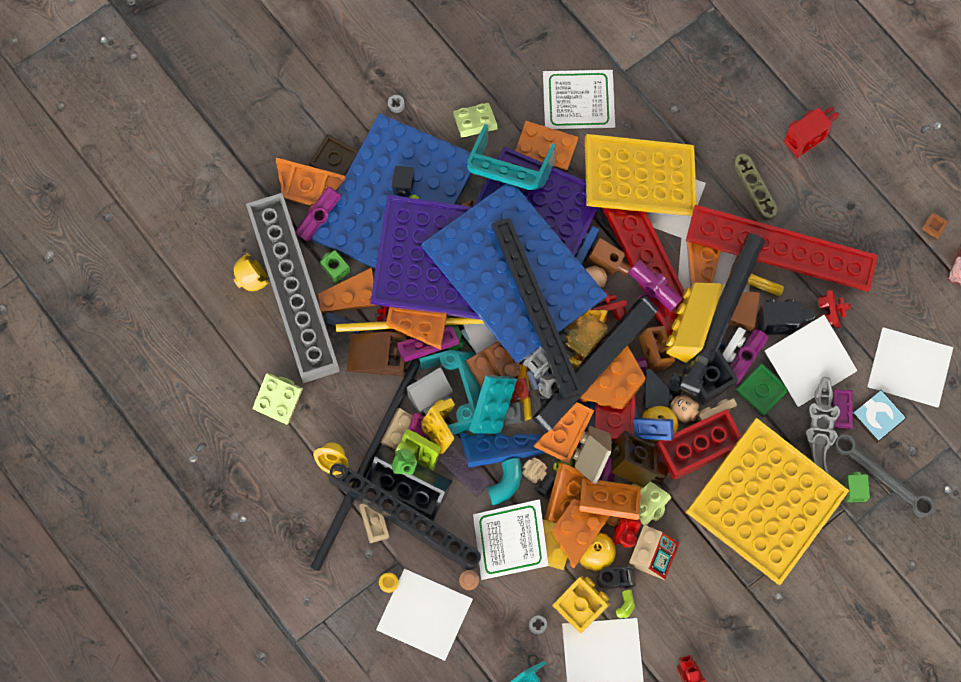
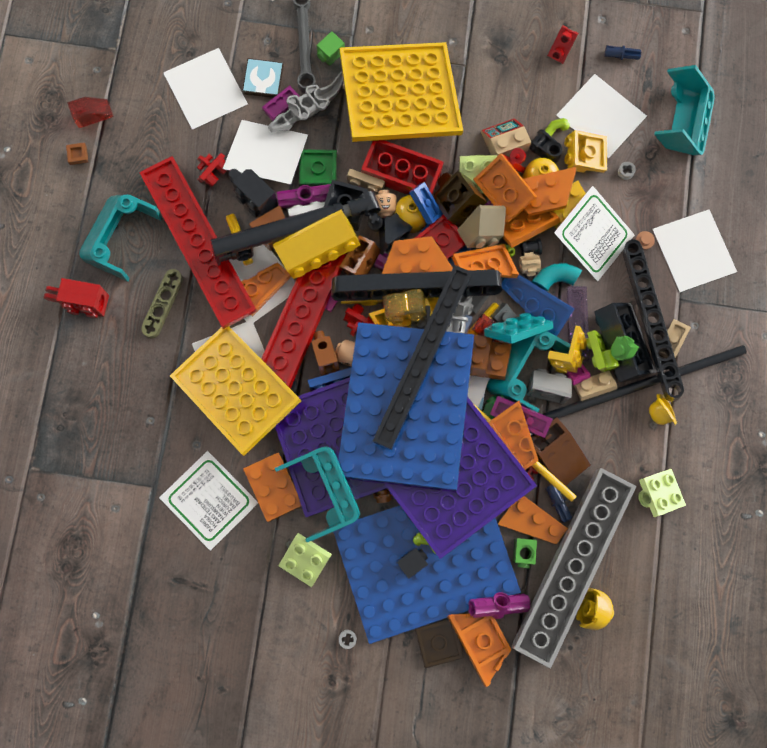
camera: 140 degrees left, 5 degrees up
(388, 582) = (701, 291): yellow plate -> none
(655, 285) = (316, 297): magenta piece -> none
(861, 214) = (94, 247): none -> teal windscreen

